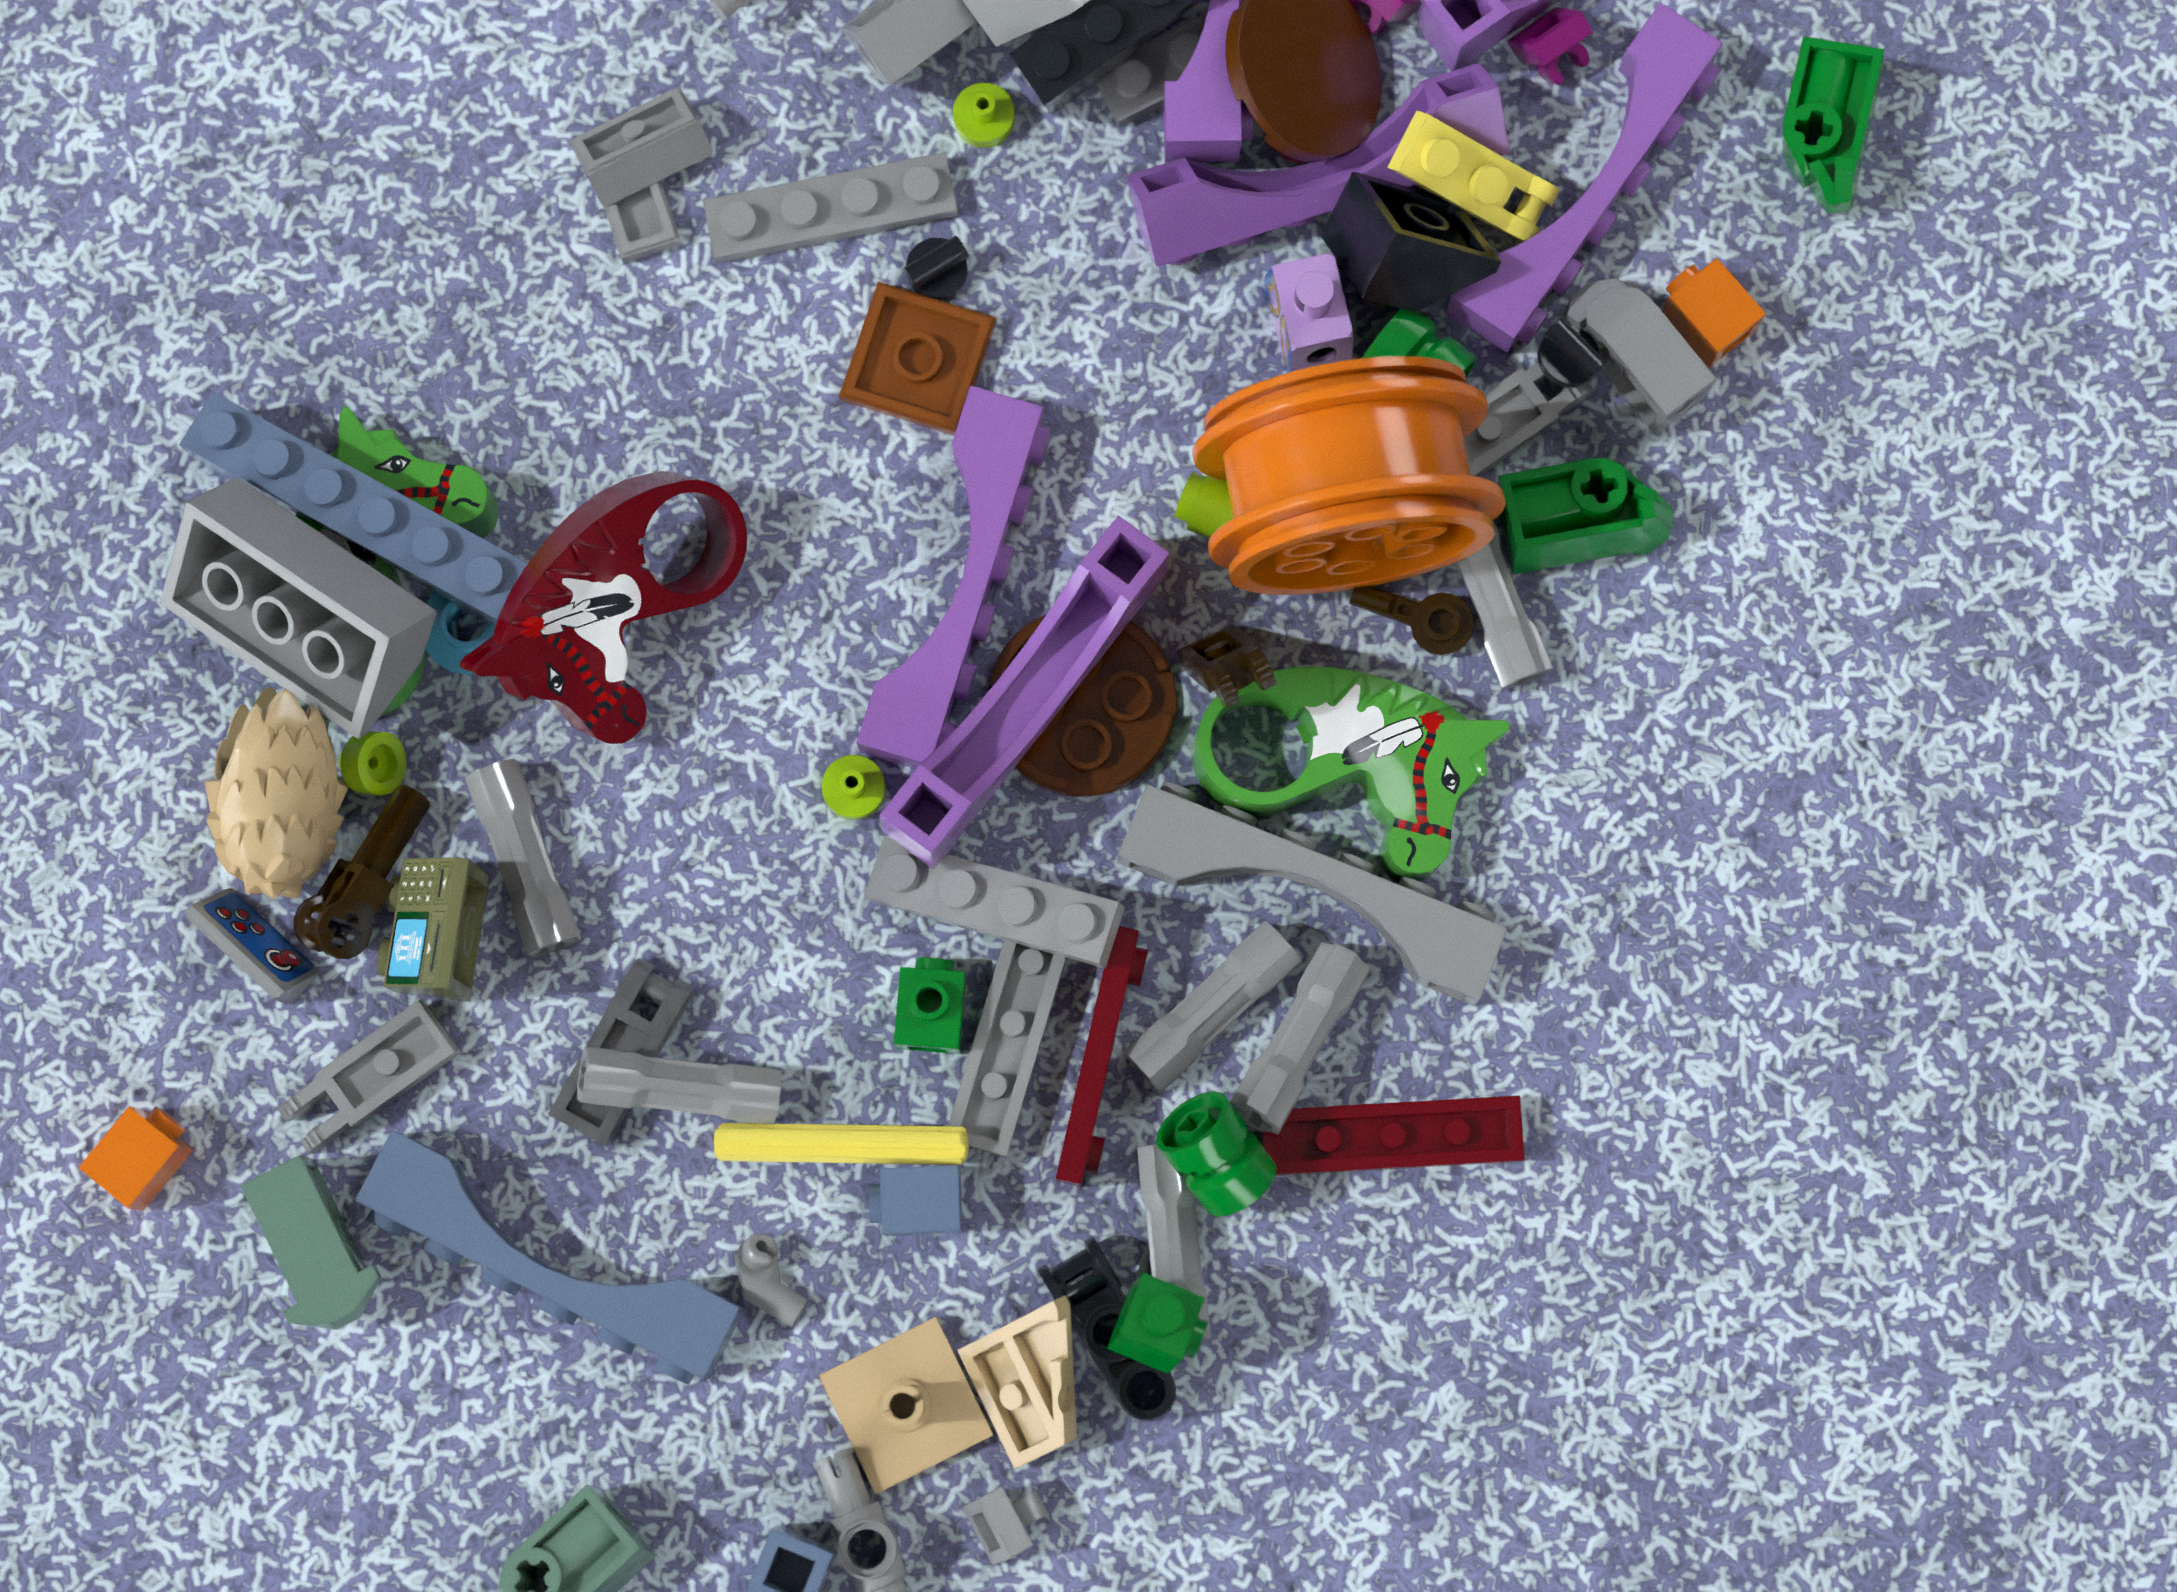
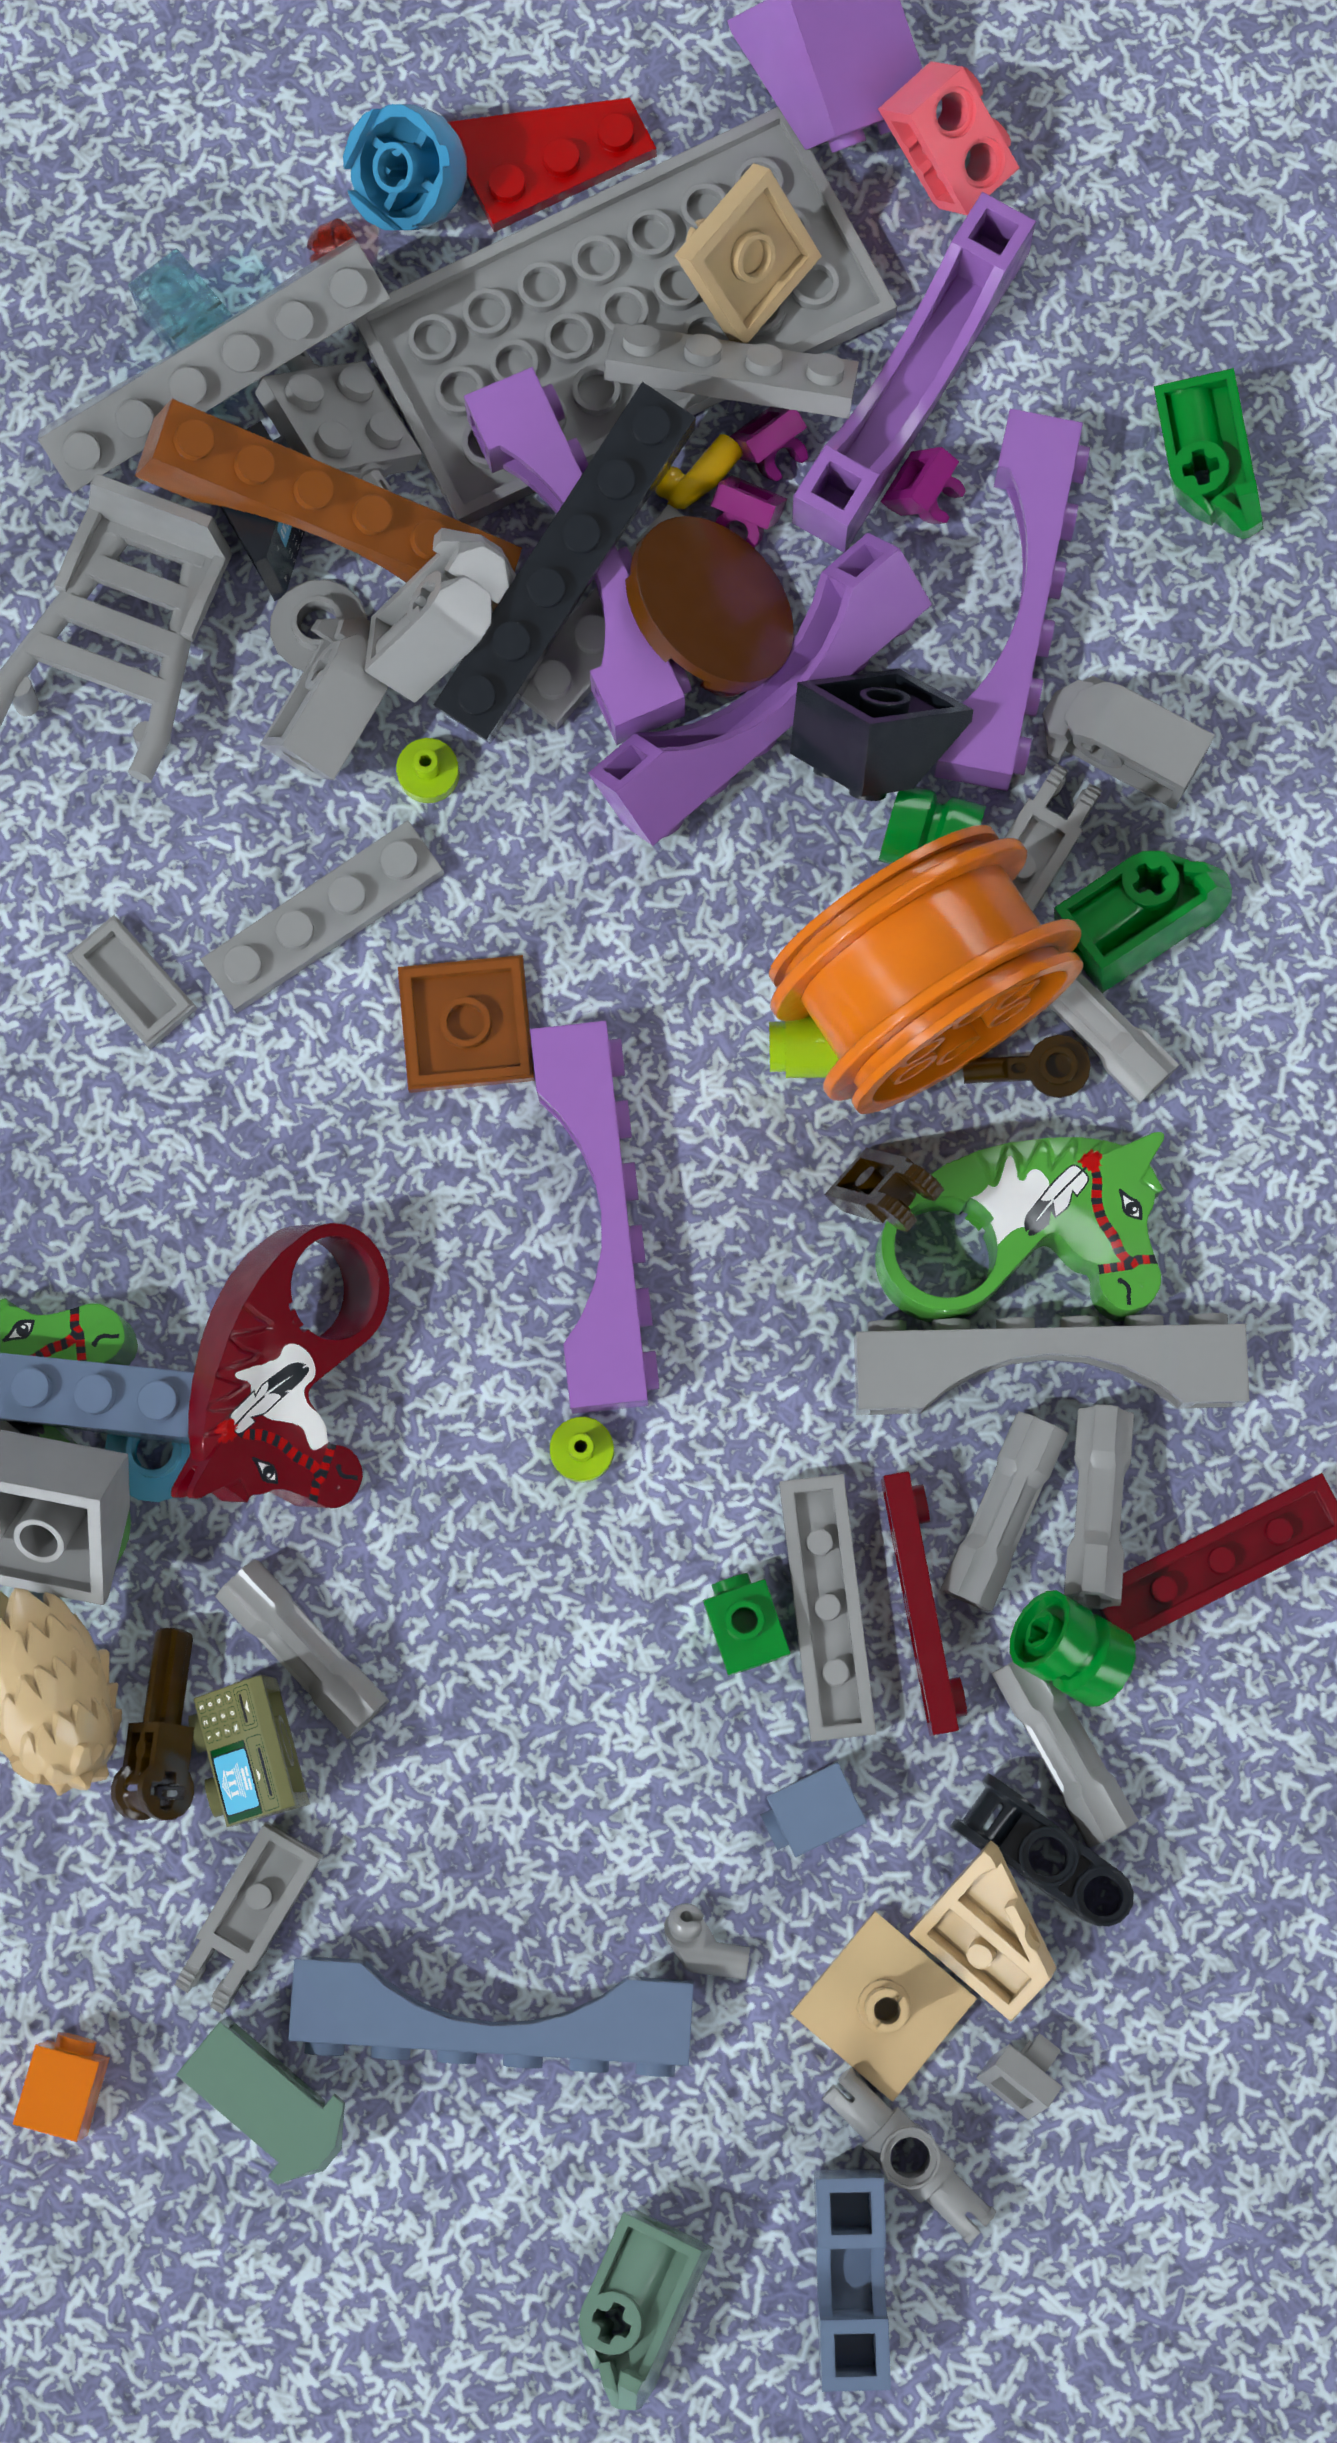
camera: 20 degrees left, 0 degrees up
(253, 945) = (83, 1839): slope -> none
(373, 763) = (123, 1621): lime tile -> none
(626, 1032) = (474, 1793): flat silver plate -> none
(635, 1080) = (505, 1812): light grey axle -> none
(641, 147) = (122, 933): light grey slope -> none
(841, 1143) = (718, 1788): light yellow axle -> none
(937, 267) = (447, 930): black plate -> none
(997, 903) = (762, 1501): light grey plate -> none
(998, 732) = (709, 1295): medium lavender arch -> none
(1109, 725) = (758, 1279): reddish brown tile -> none
(1158, 1324) = (1091, 1831): green brick -> none
(1309, 311) = (816, 833): lavender torso -> none
(1471, 176) = (907, 641): light yellow plate -> none
(1569, 355) = (1069, 770): black plate -> none
(1711, 310) = (1178, 672): orange brick -> none

